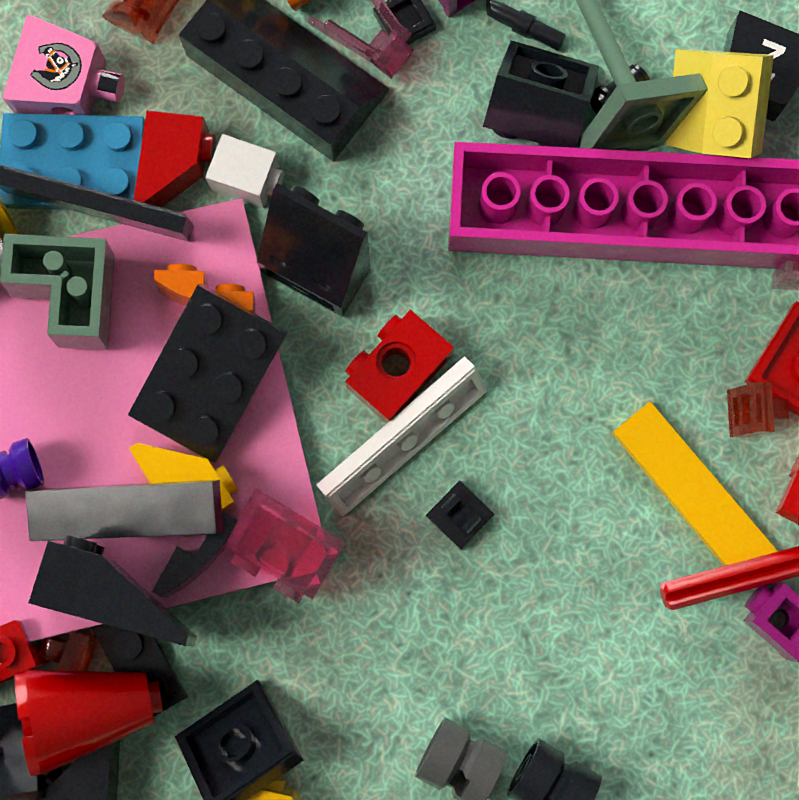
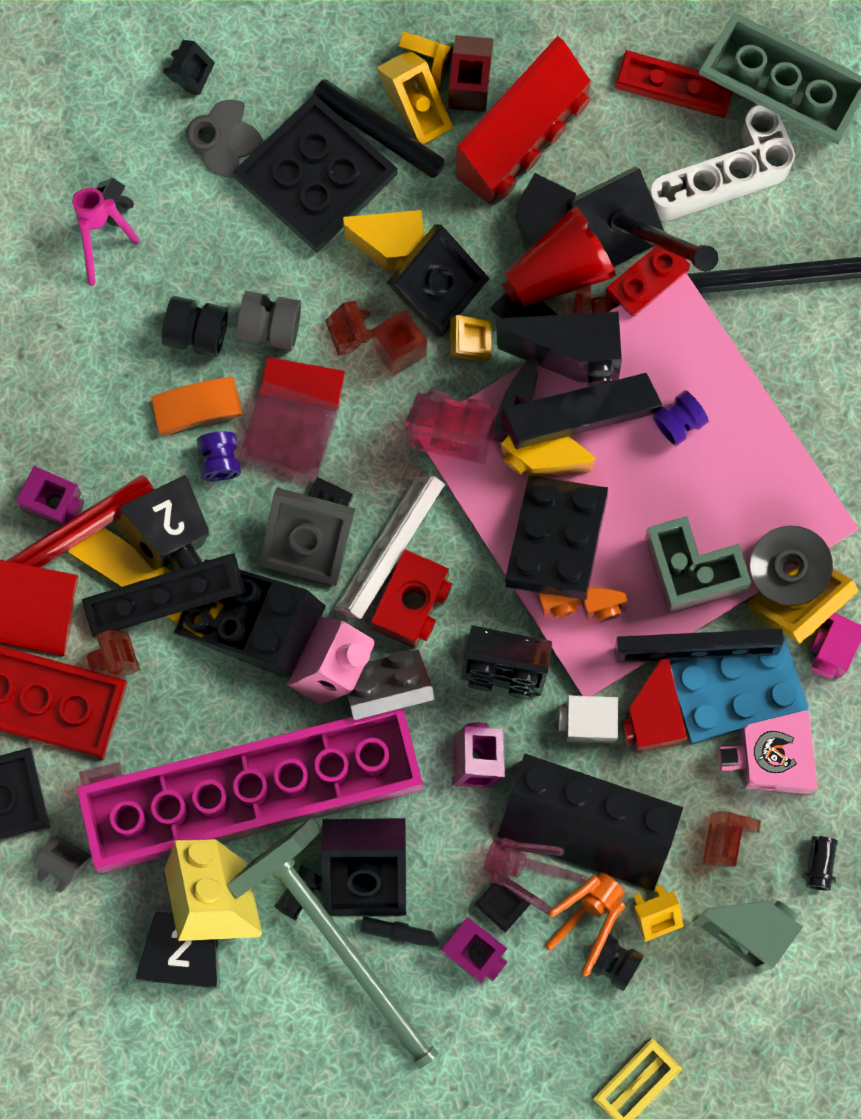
camera: 160 degrees right, 5 degrees down
(224, 664) = (470, 338): none -> yellow tile
(311, 681) = (399, 342): none -> clear red brick
(366, 724) = (348, 327): none -> clear red tile
(371, 159) = (489, 746): none -> magenta brick
(443, 673) = (306, 379): none -> red tile
(458, 271) = (391, 685): none -> dark grey plate
(477, 616) = (289, 431): none -> clear pink plate
(496, 474) = (306, 536): none -> dark grey plate
(509, 319) = (335, 656): none -> bright pink torso
(570, 609) = (218, 459): none -> dark purple wheel
(578, 684) = (196, 404): none -> orange slope
(583, 393) = (260, 626): none -> black slope
(656, 537) = (165, 525): none -> black torso
(682, 455) = (164, 595): none -> black tile

